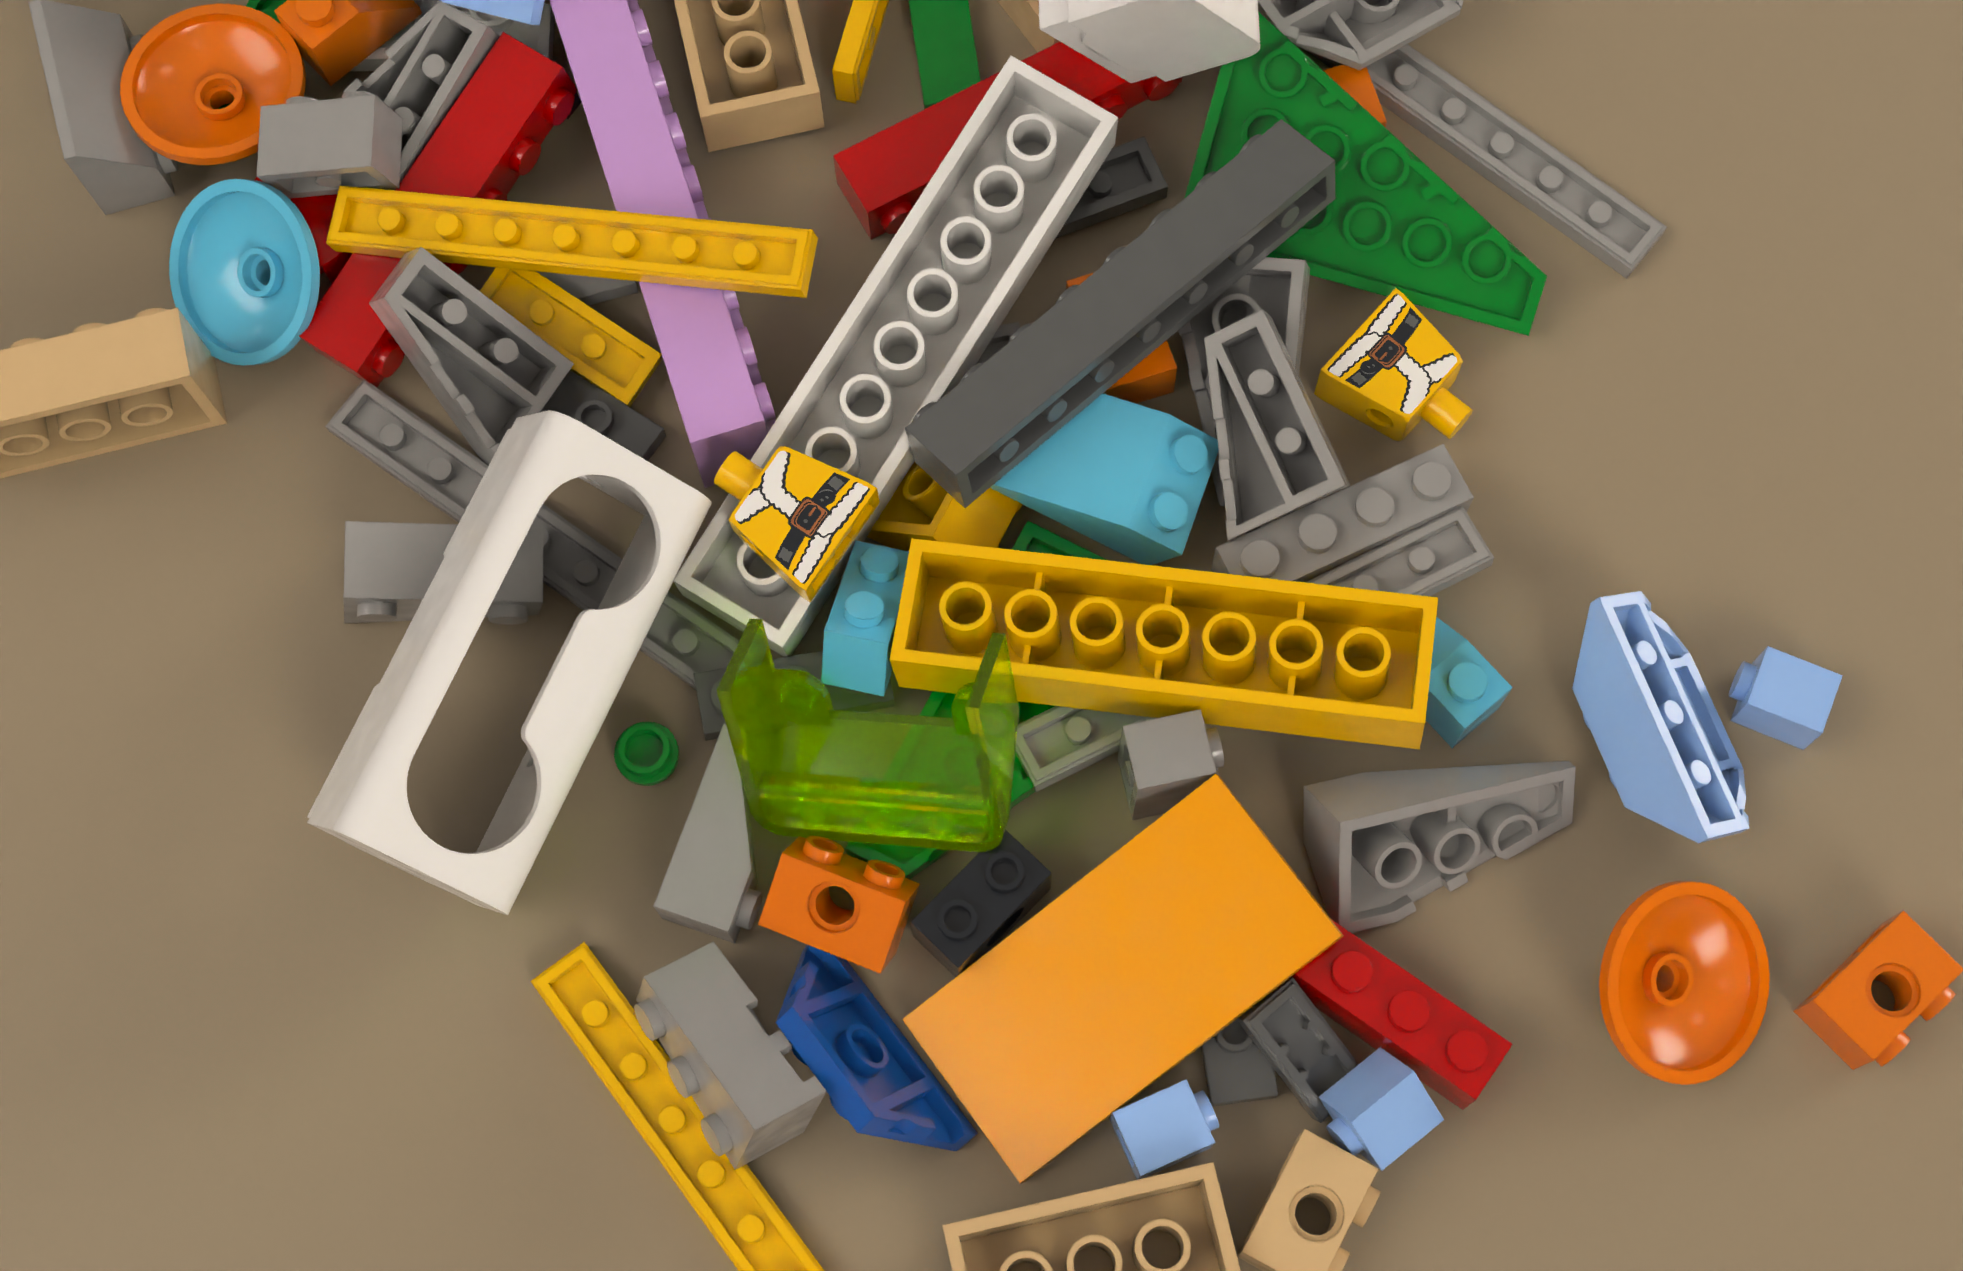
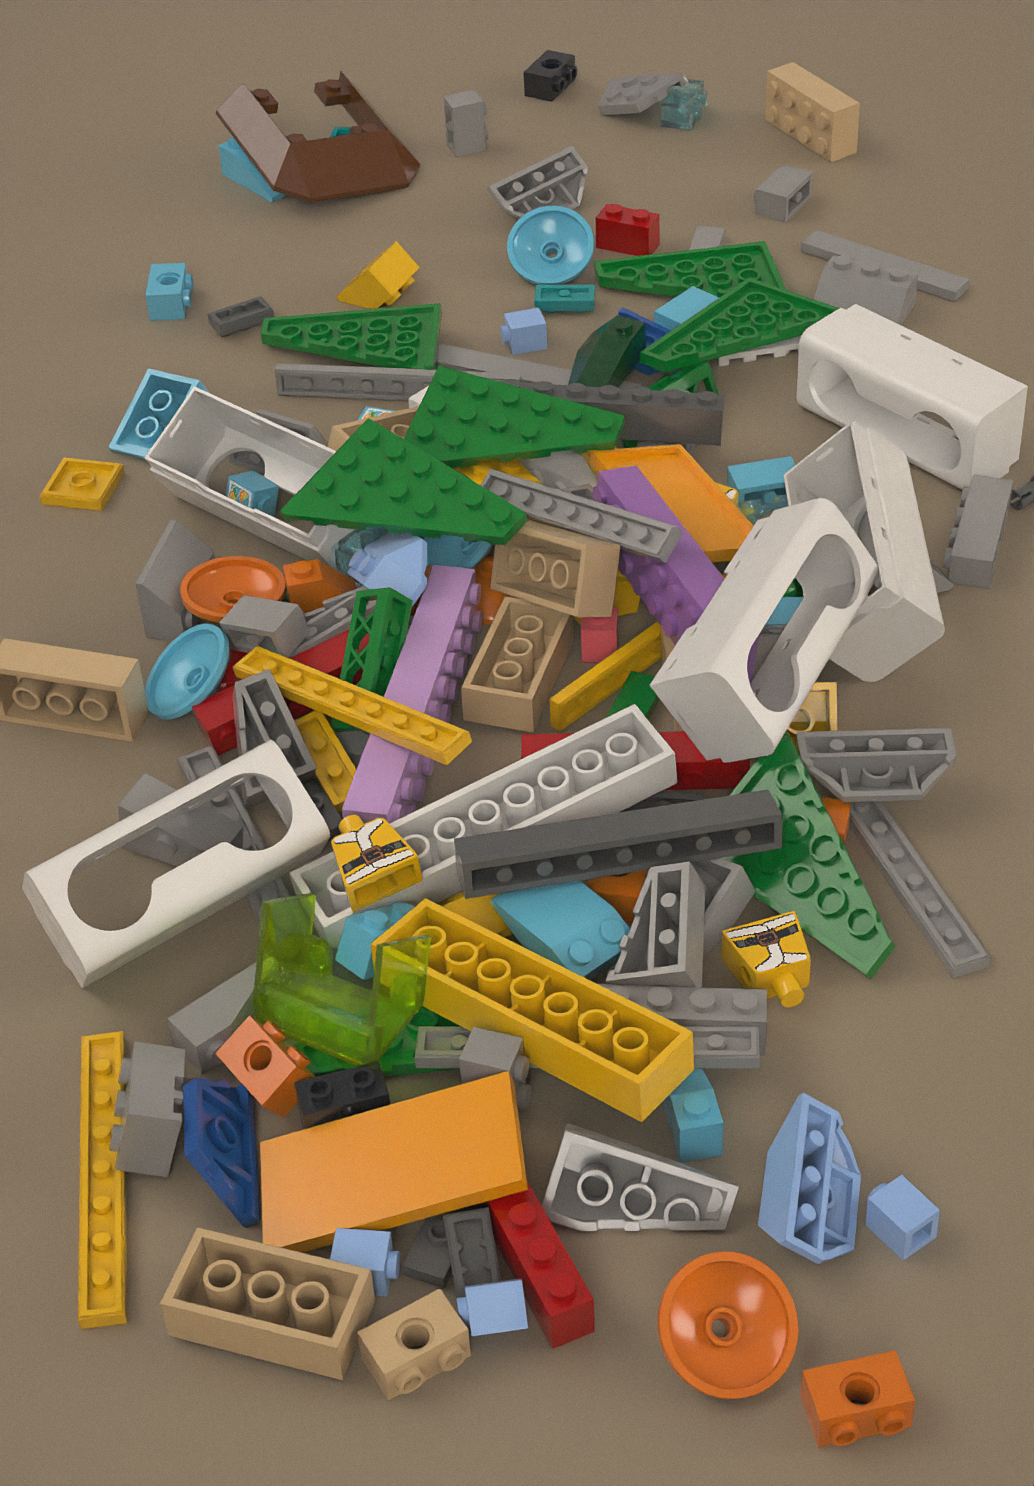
camera: 30 degrees right, 30 degrees down
(554, 108) = (387, 633): none -> green fence
(646, 753) = (222, 961): green plate -> none

